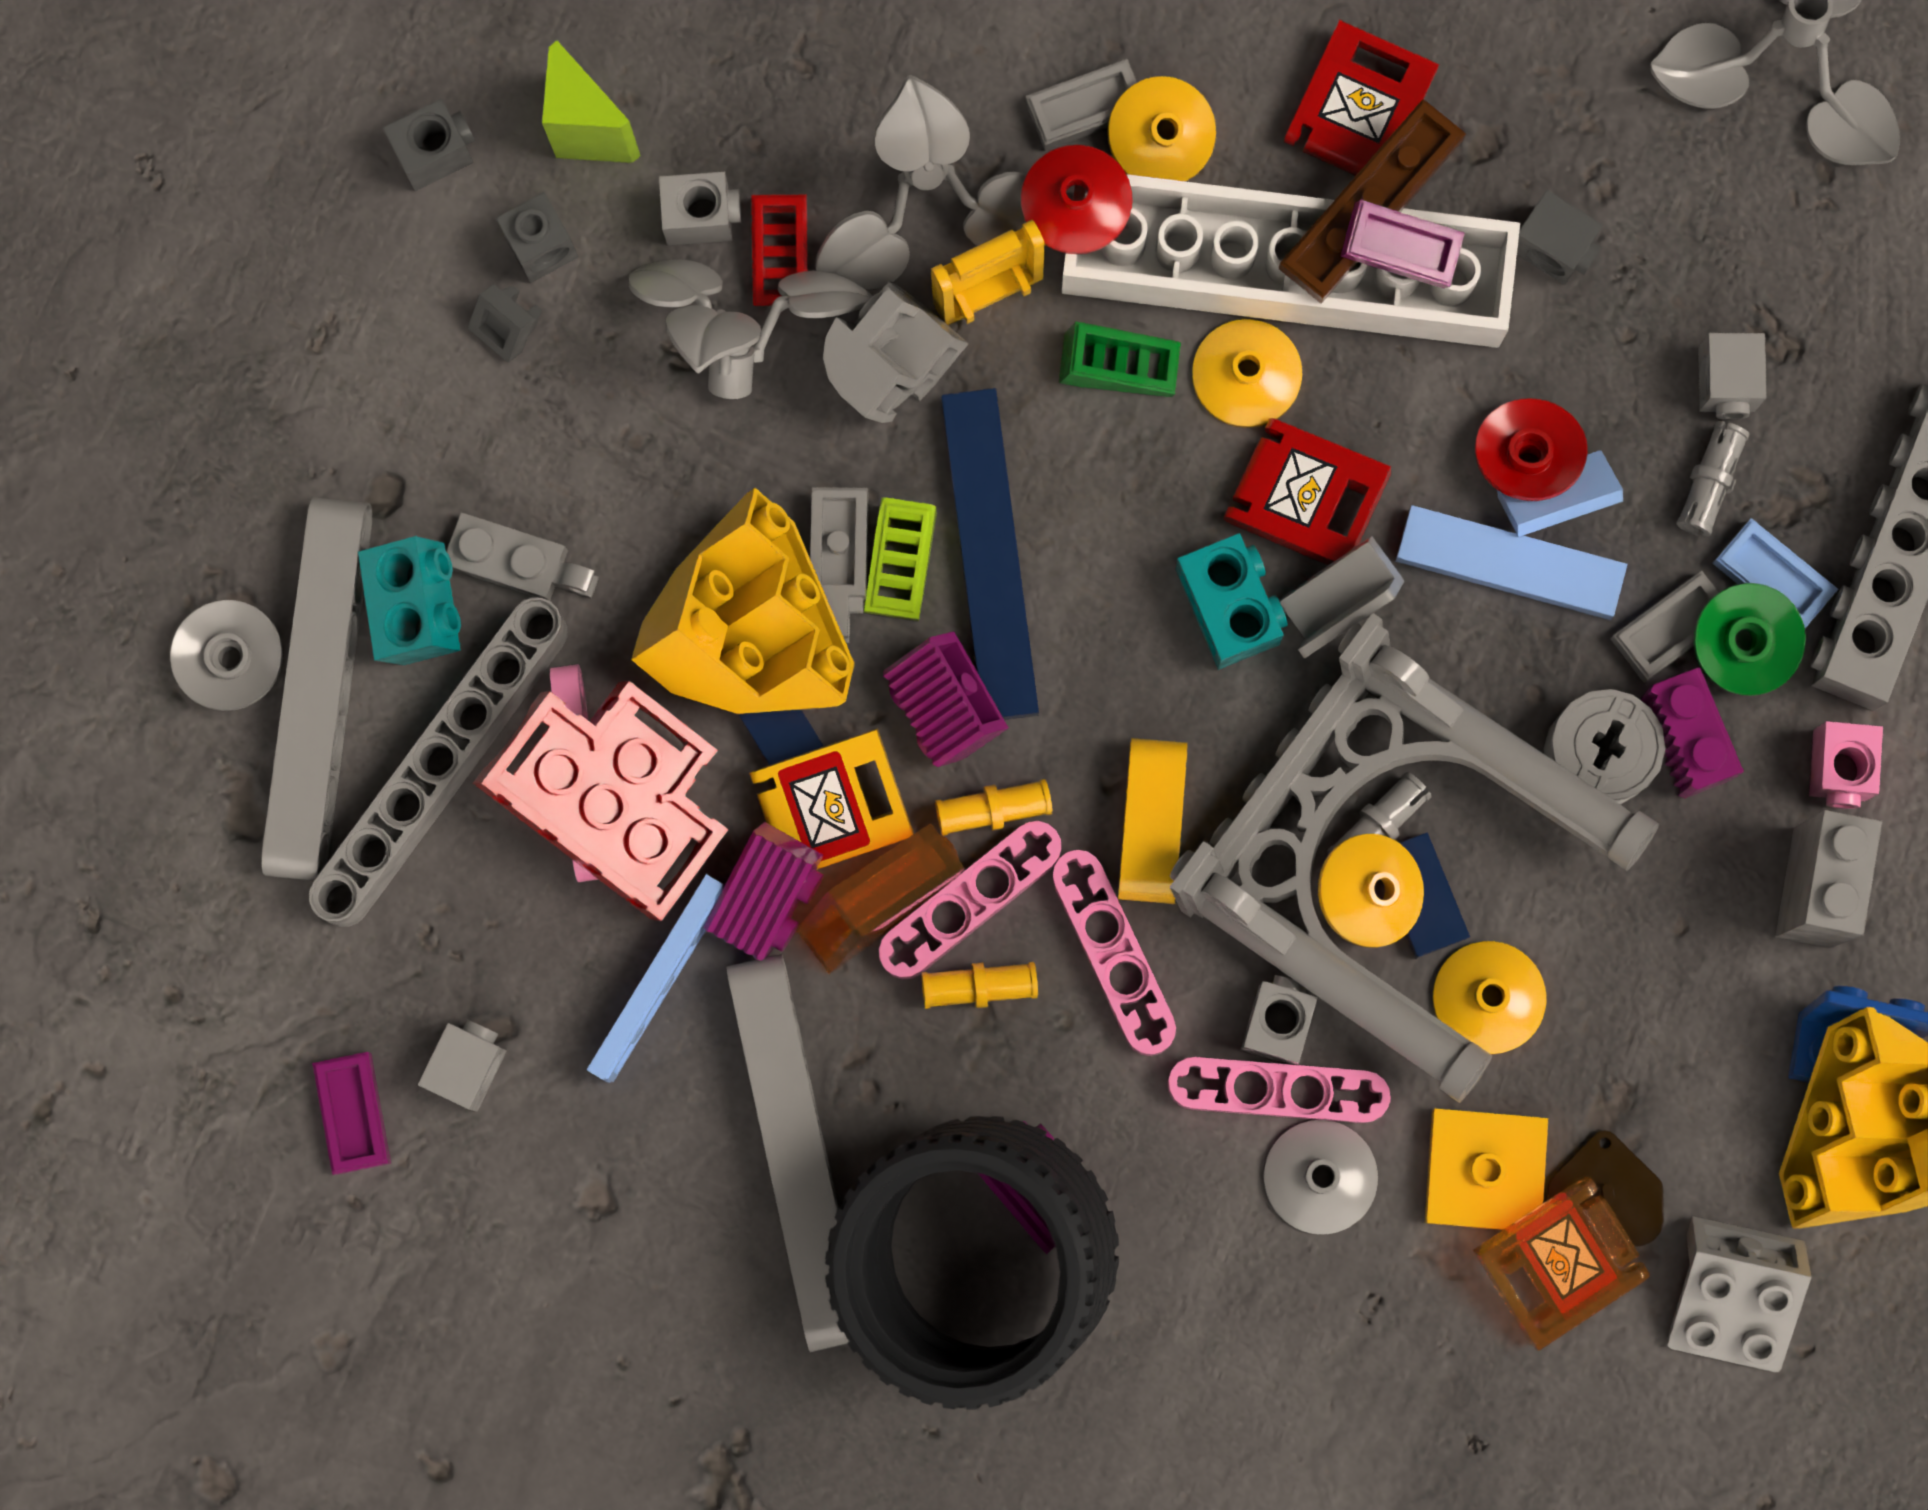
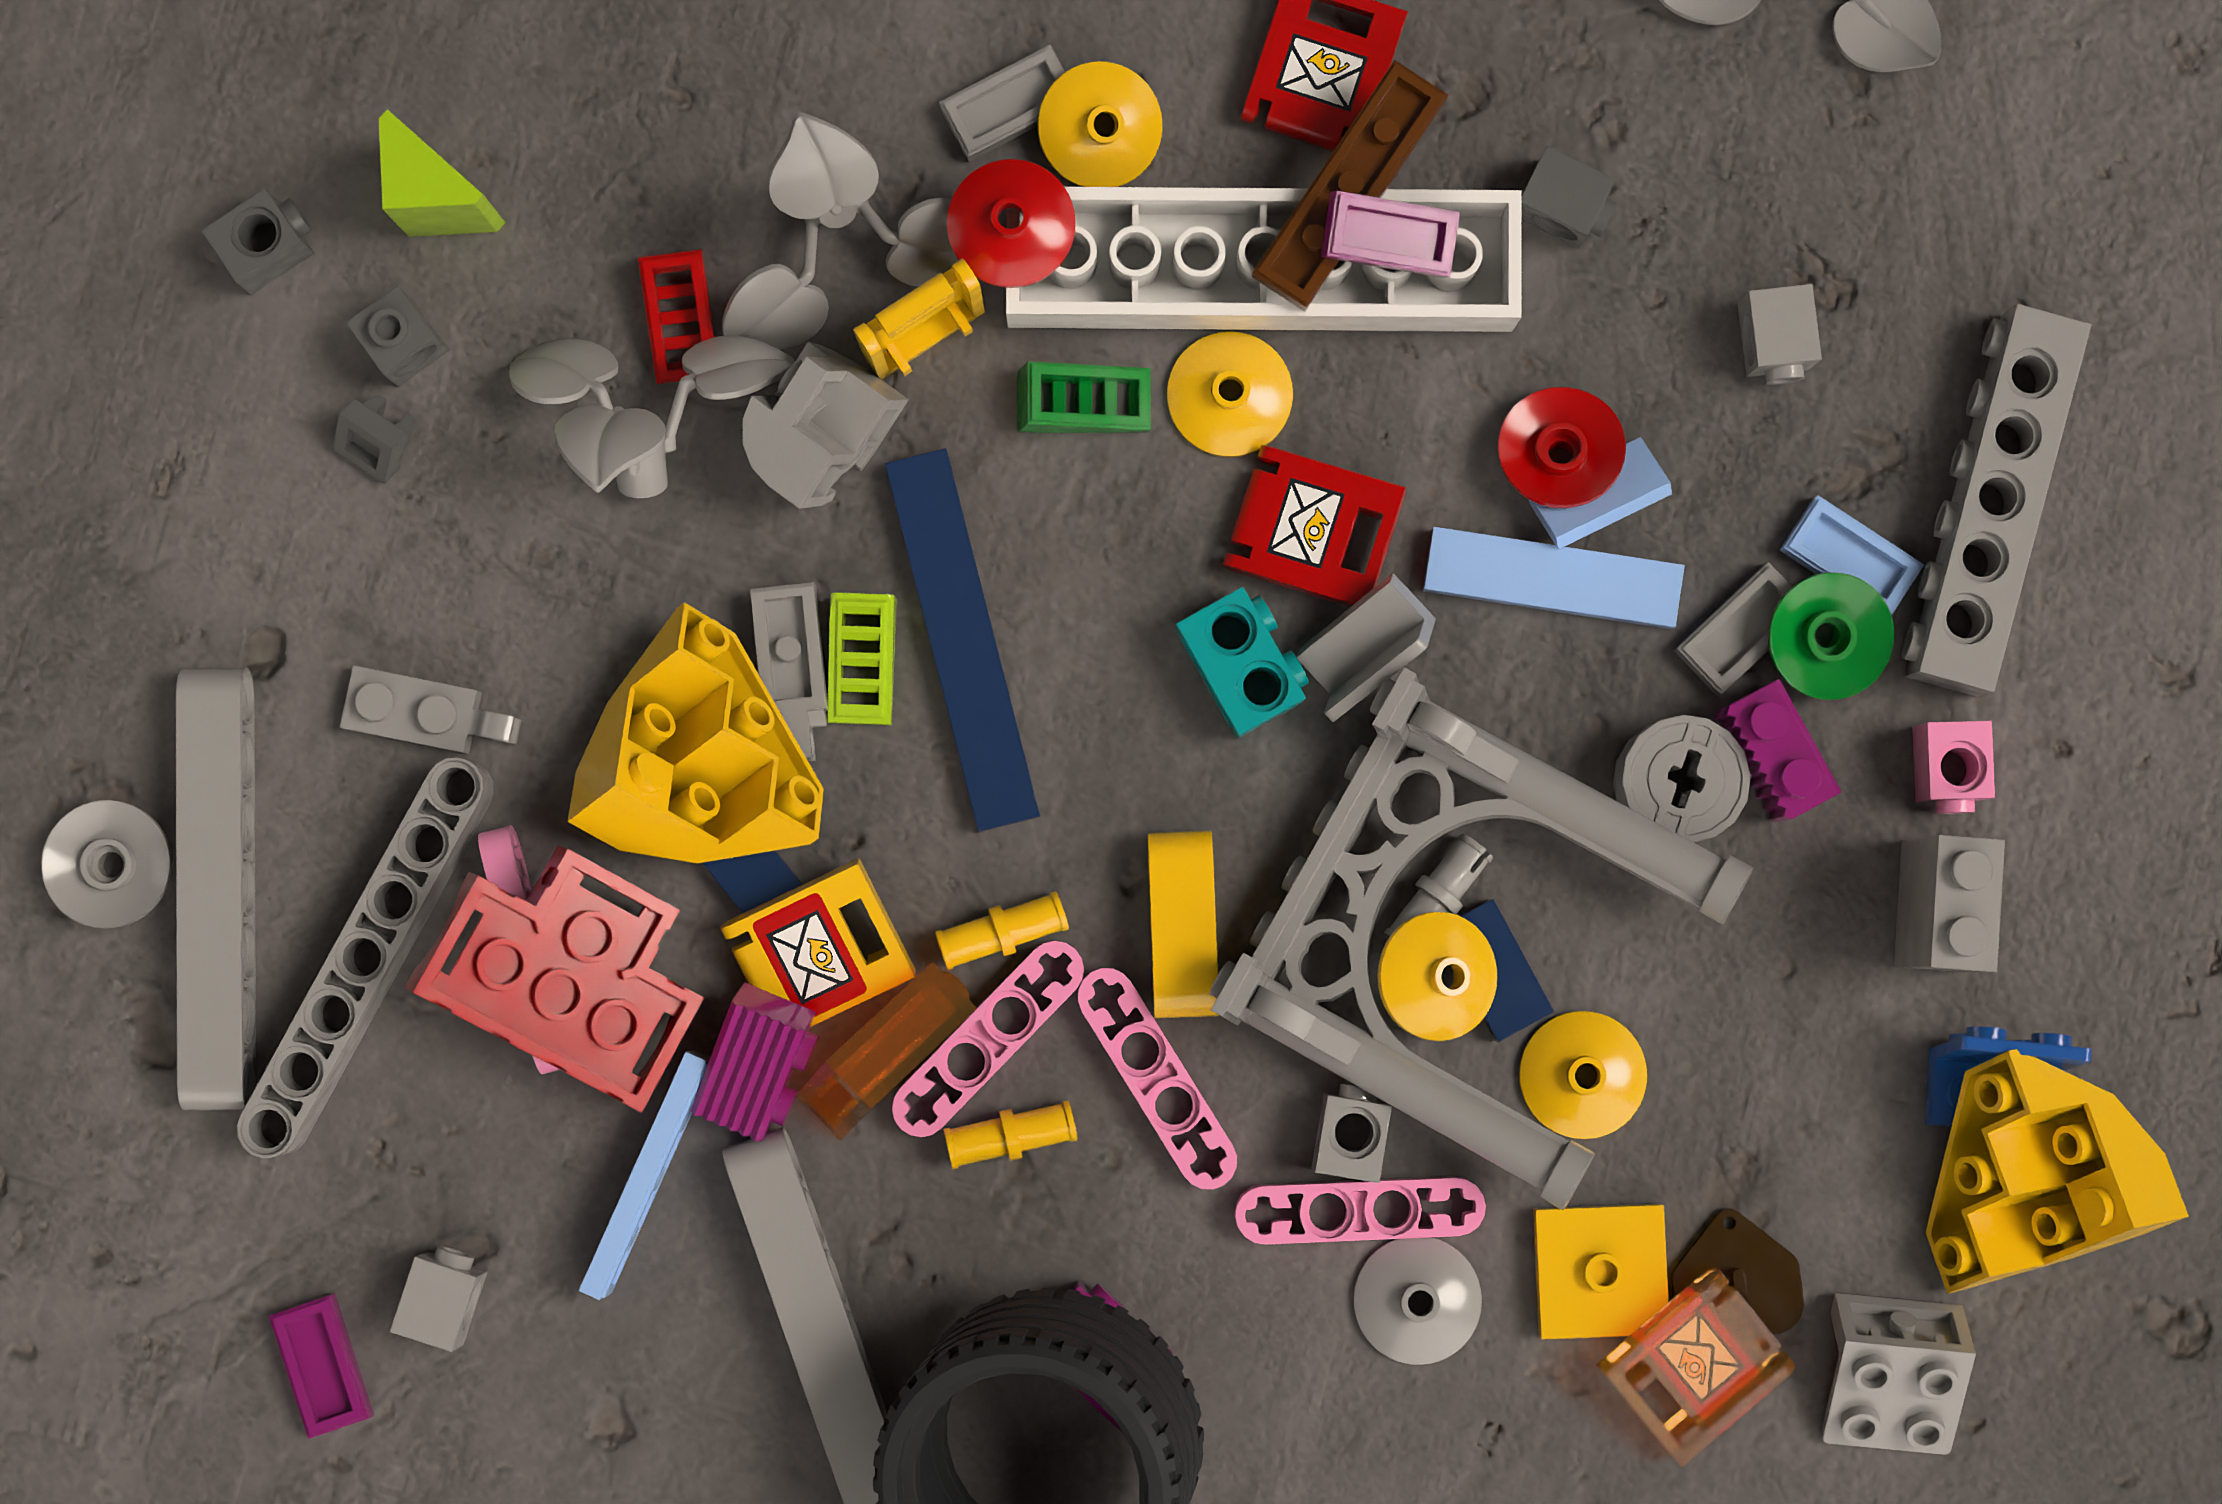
camera: 15 degrees left, 5 degrees up
(397, 604) = (296, 780): teal brick -> none
(681, 191) = (553, 267): light grey brick -> none
(944, 699) = (931, 816): magenta brick -> none
(1713, 479) = (1770, 454): light grey pin -> none

